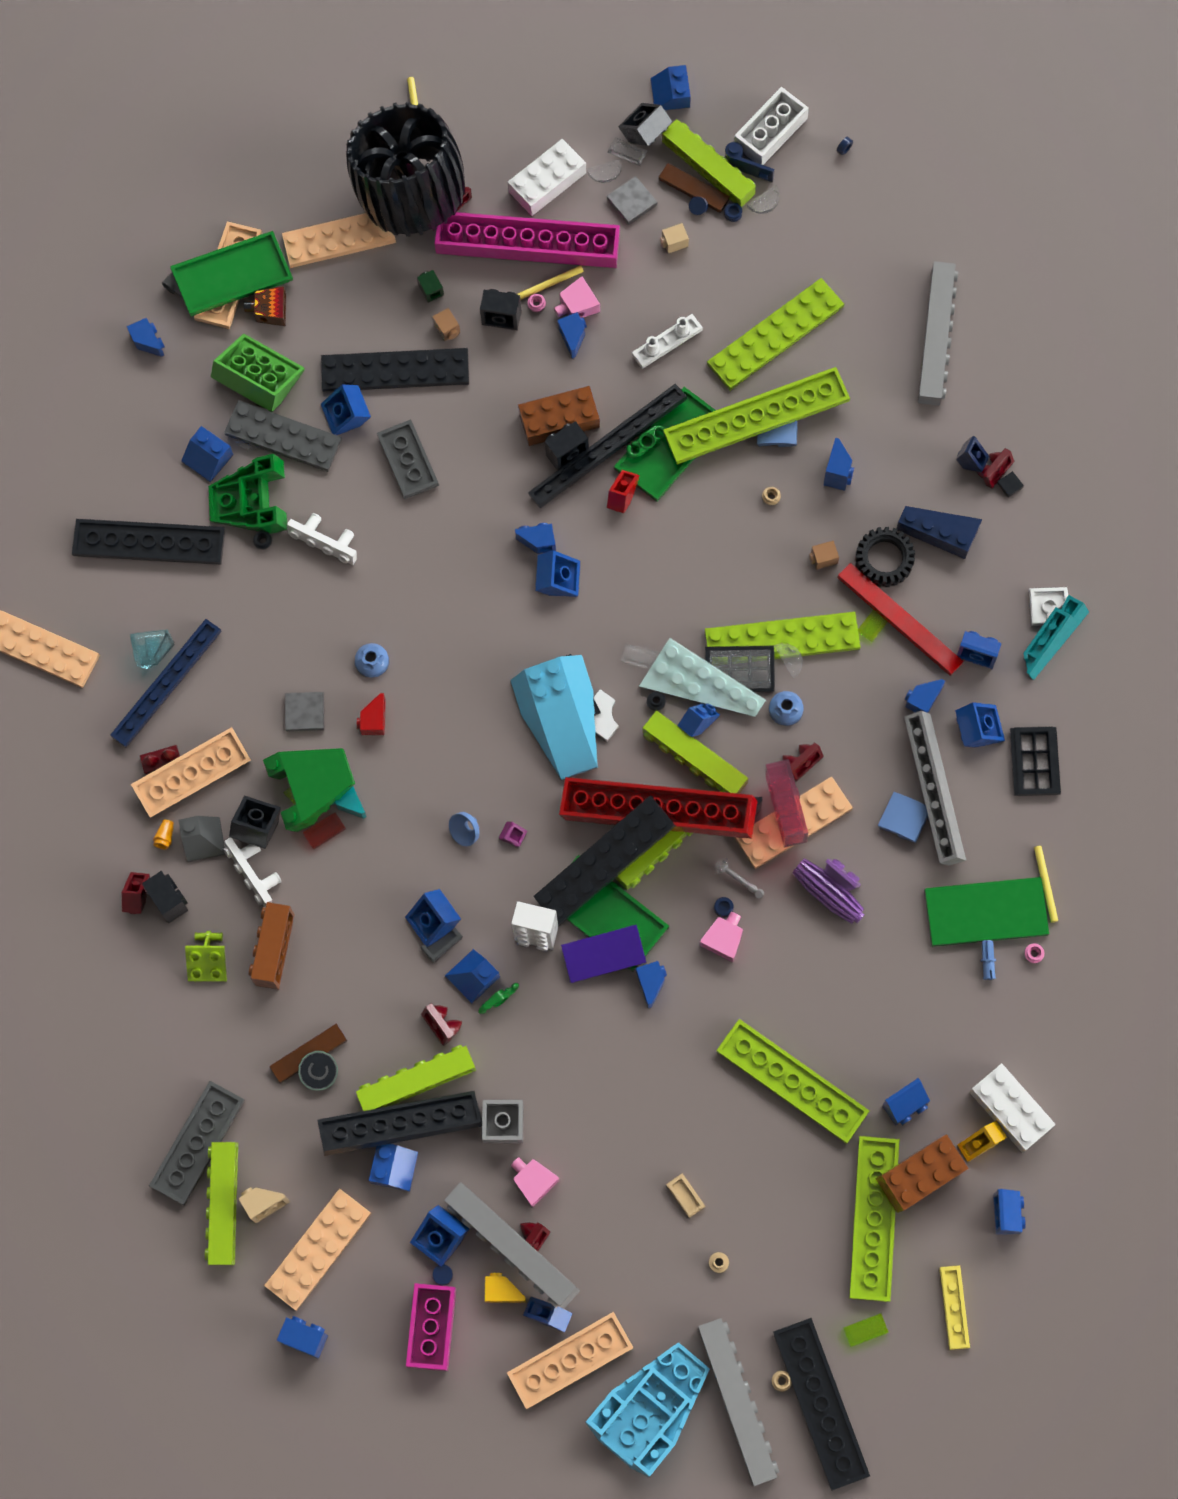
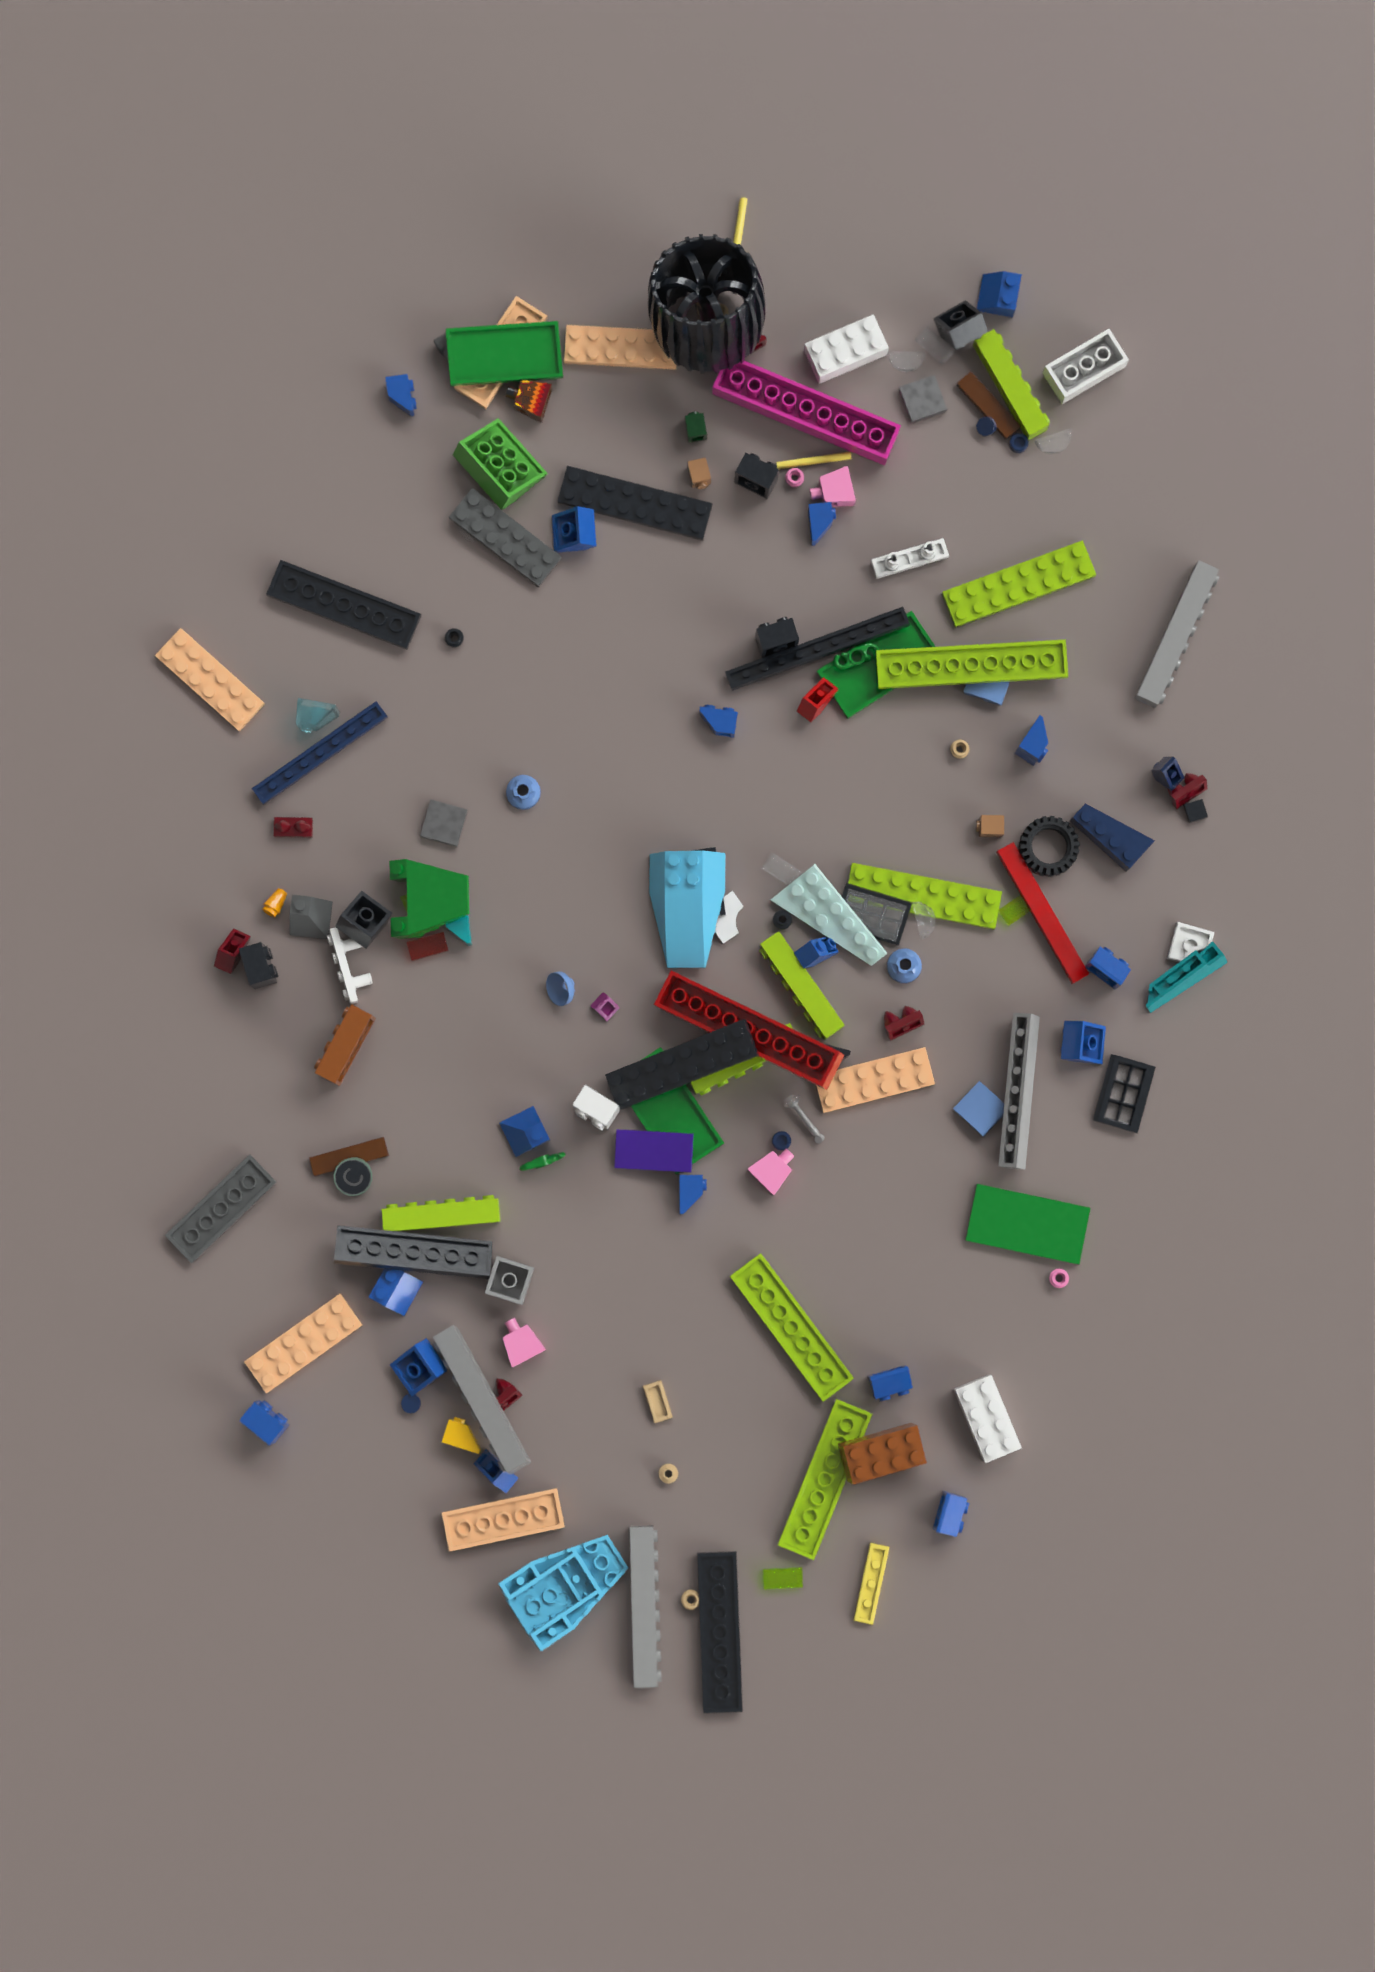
camera: 10 degrees right, 10 degrees up
(190, 772) = (317, 850): light nougat plate -> none
(206, 454) = (425, 533): blue slope -> none
(206, 961) = (278, 1039): lime plate -> none
(222, 1203) = (227, 1274): lime brick -> none
(244, 497) = (449, 588): green wedge -> none
(261, 1202) = (263, 1285): tan slope -> none
(327, 545) = (515, 665): white plate -> none
(373, 717) = (507, 850): red slope -> none
(407, 459) = (619, 600): dark grey plate -> none
(431, 1327) = (385, 1450): dark pink brick -> none
(432, 917) = (504, 1064): blue slope -> none
(435, 1019) = (482, 1175): dark red tile -> none
(441, 946) = (505, 1089): dark grey tile -> none
(551, 413) = (774, 600): dark orange brick -> none
(557, 574) = (727, 764): blue slope -> none
(674, 238) = (951, 453): tan brick -> none
(734, 155) = (1039, 384): dark blue door -> none
(786, 803) = (872, 1063): clear pink brick -> none
(831, 887) = (889, 1155): medium lavender plate -> none
(844, 145) = (1152, 409): dark blue tile -> none
(924, 696) = (1039, 997): blue slope -> none
(982, 1141) = (949, 1439): yellow slope -> none
(988, 960) = (1013, 1271): medium blue axle -> none
(1046, 884) = (1093, 1215): light yellow bar -> none

